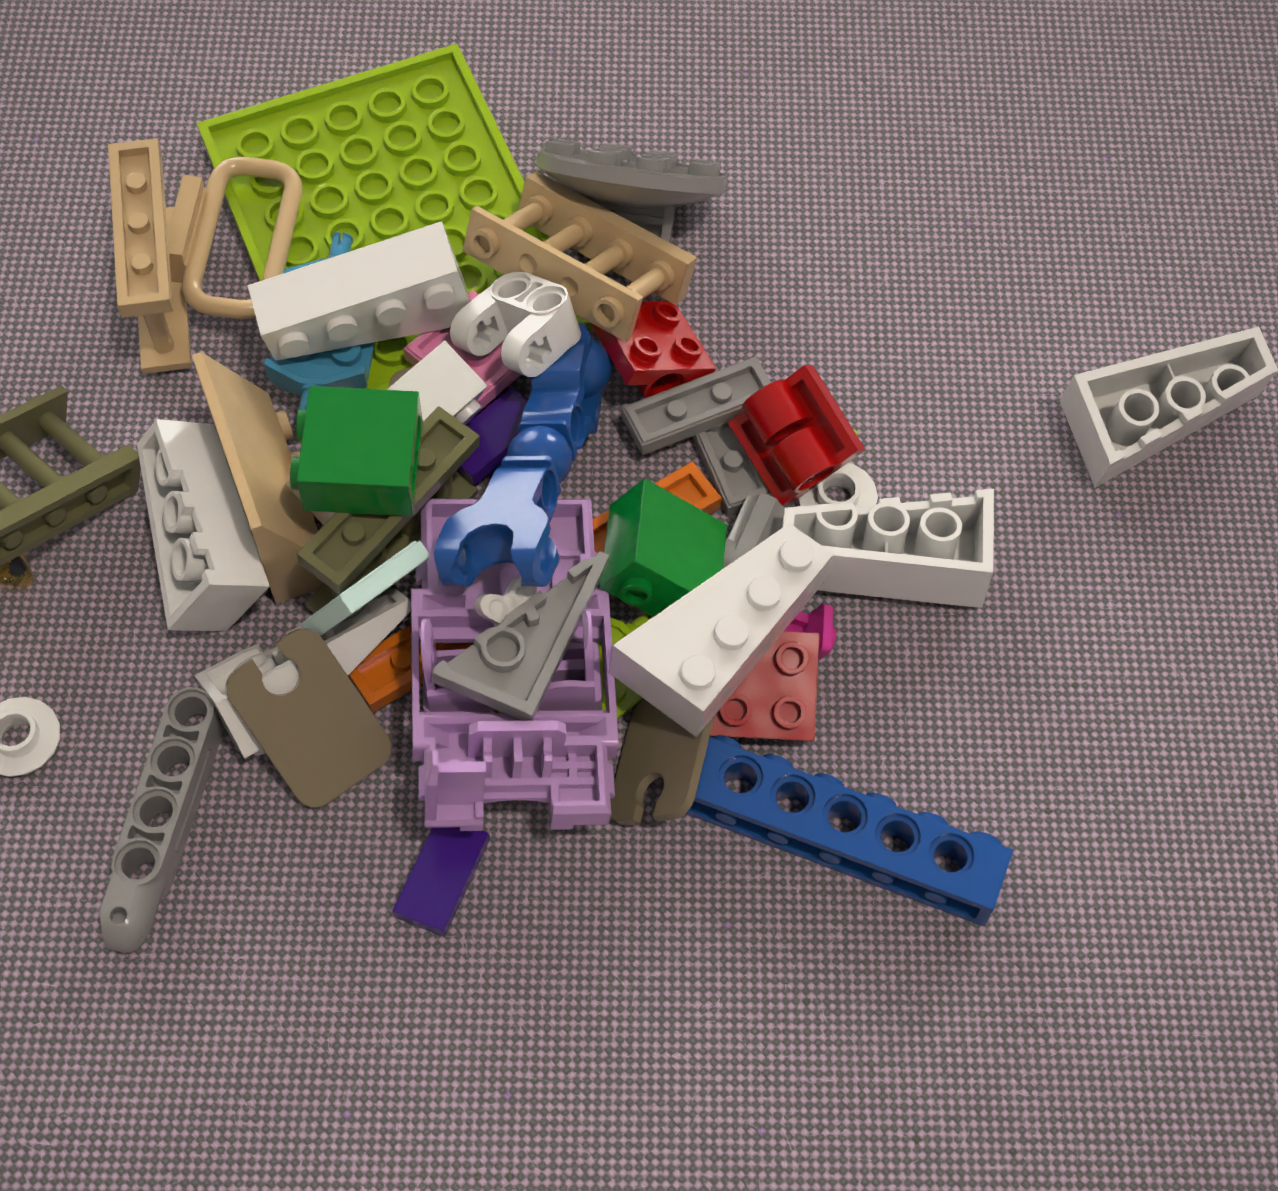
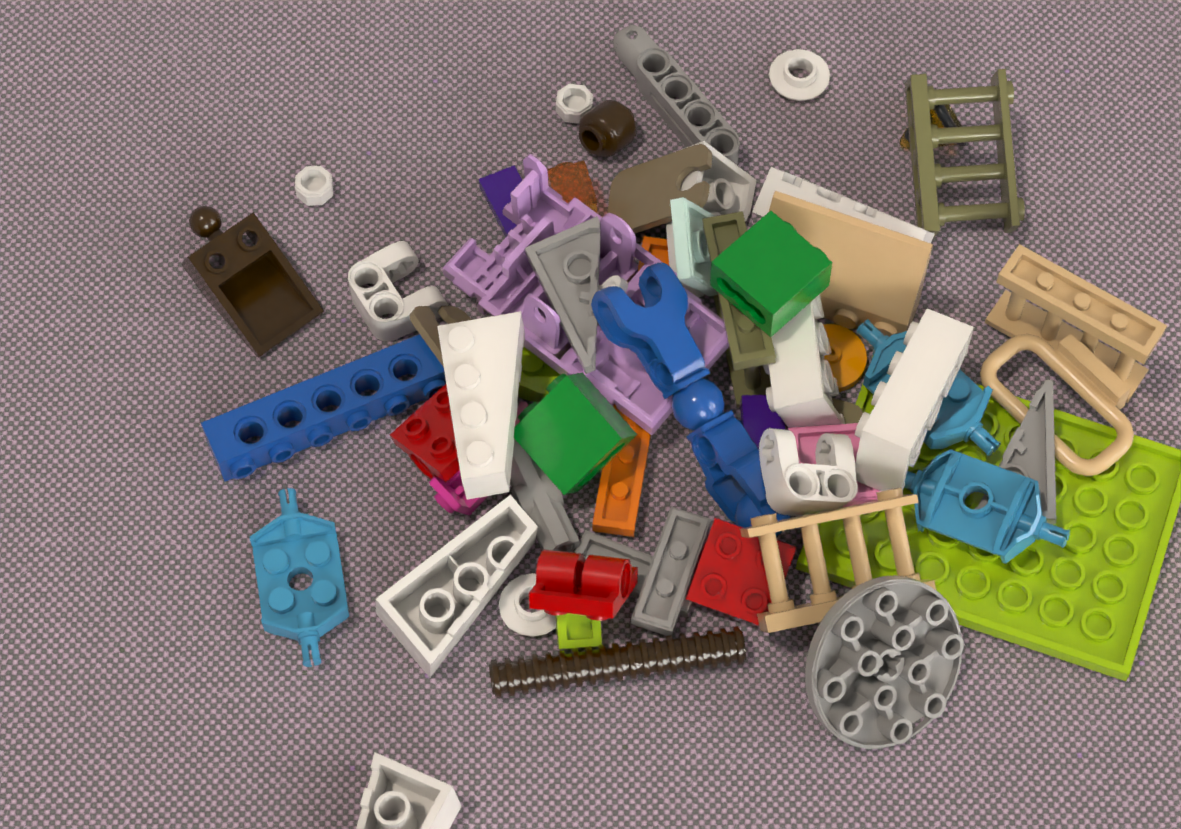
camera: 135 degrees right, 0 degrees up
(254, 922) = (573, 102): none -> white tile
(262, 852) = (607, 128): none -> dark brown head
(350, 199) = (1033, 450): none -> light grey wing
(378, 819) = (573, 181): none -> clear orange brick
(404, 170) = (1002, 527): none -> dark azure plate
(610, 1098) = (314, 185): none -> white tile
(665, 847) = (382, 270): none -> white piece
(790, 1048) = (257, 284): none -> dark brown slope
(859, 407) = (617, 662): none -> dark brown piece
(1032, 655) = (291, 547): none -> dark azure plate

